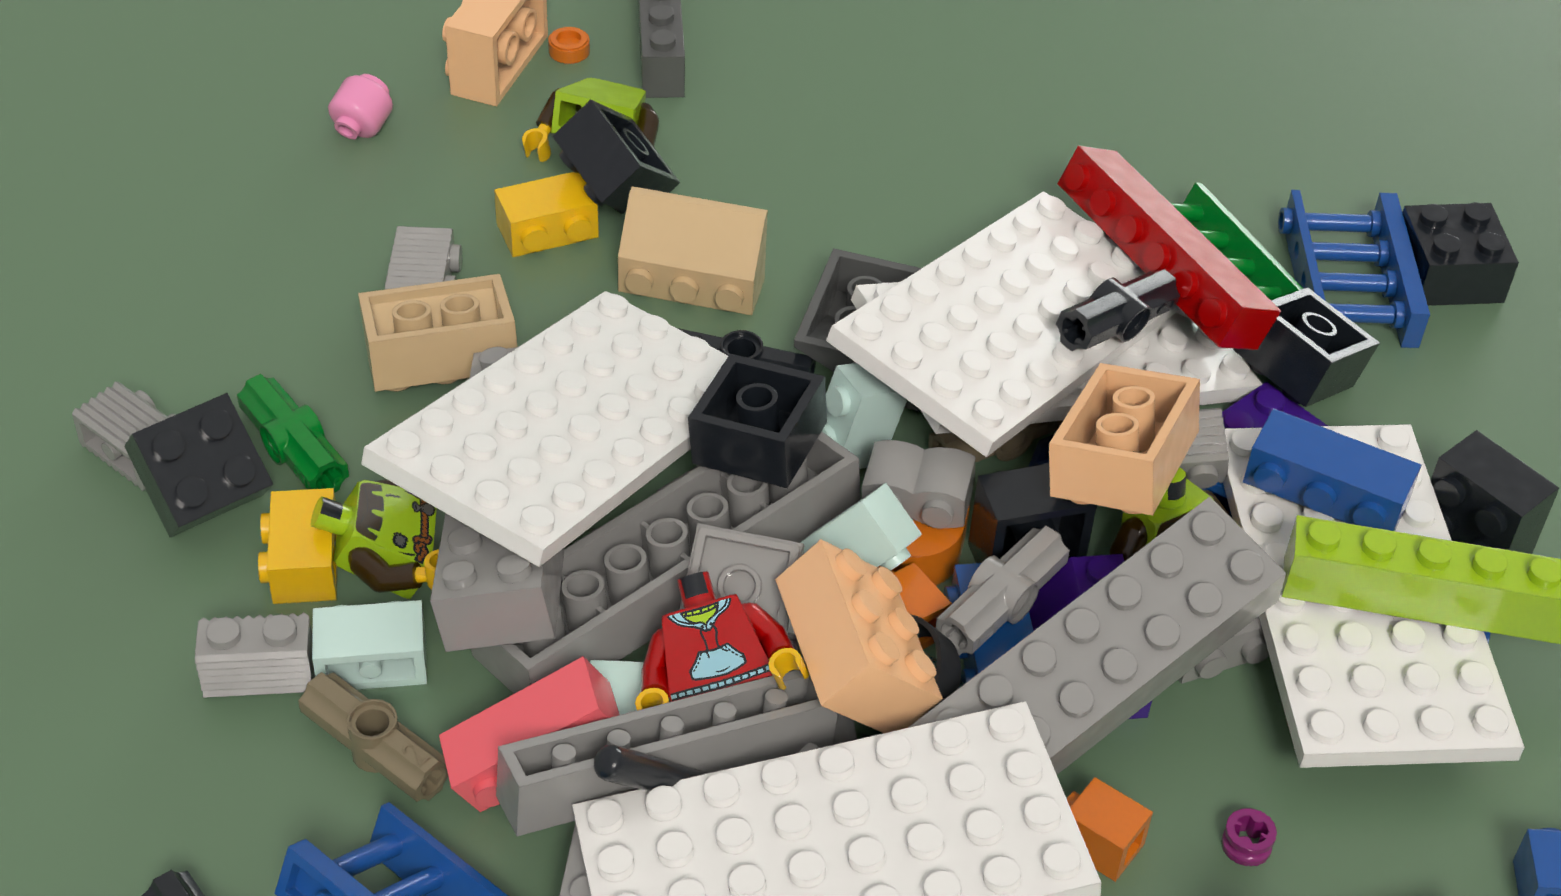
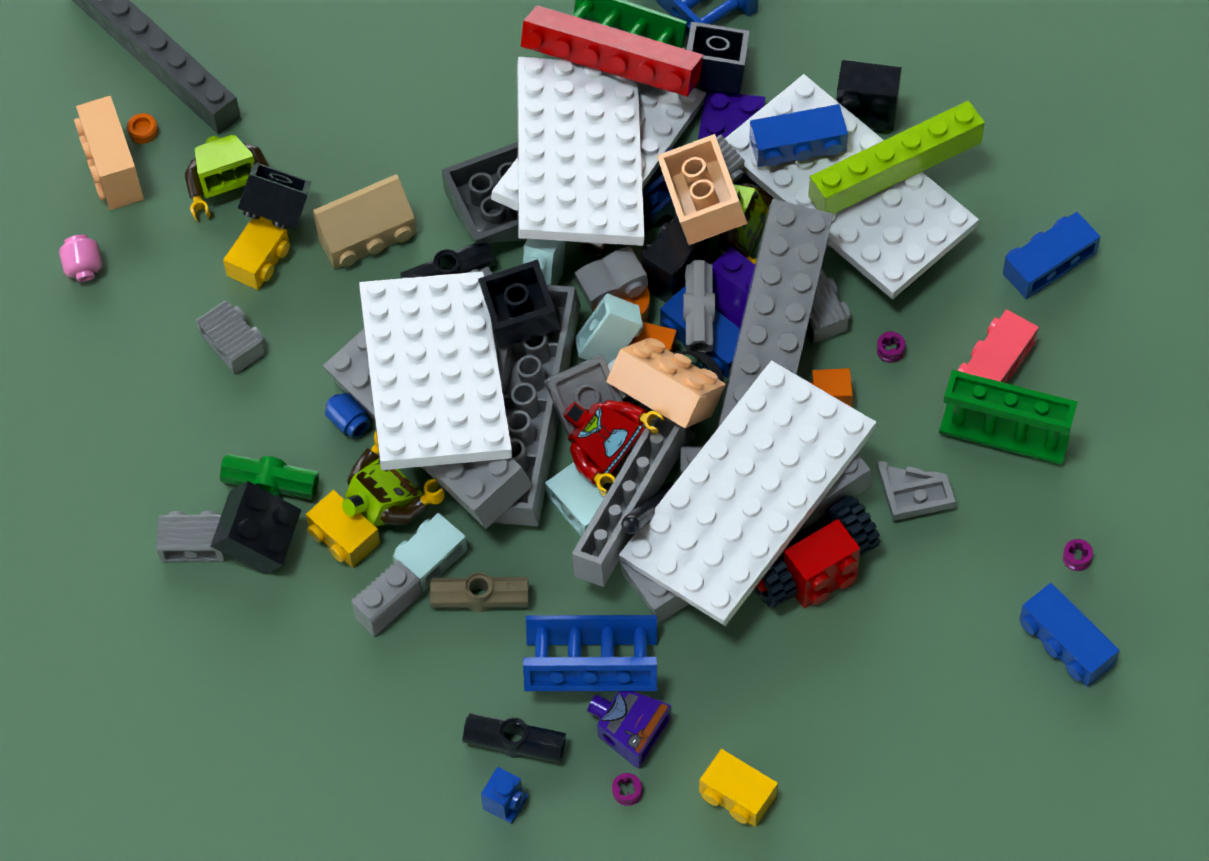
camera: 35 degrees left, 15 degrees up
(434, 330) = (283, 365): tan slope -> none
(554, 703) = (556, 537): coral brick -> none
(1117, 310) = (630, 112): black piece -> none
(1185, 719) = (827, 314): none -> light grey brick

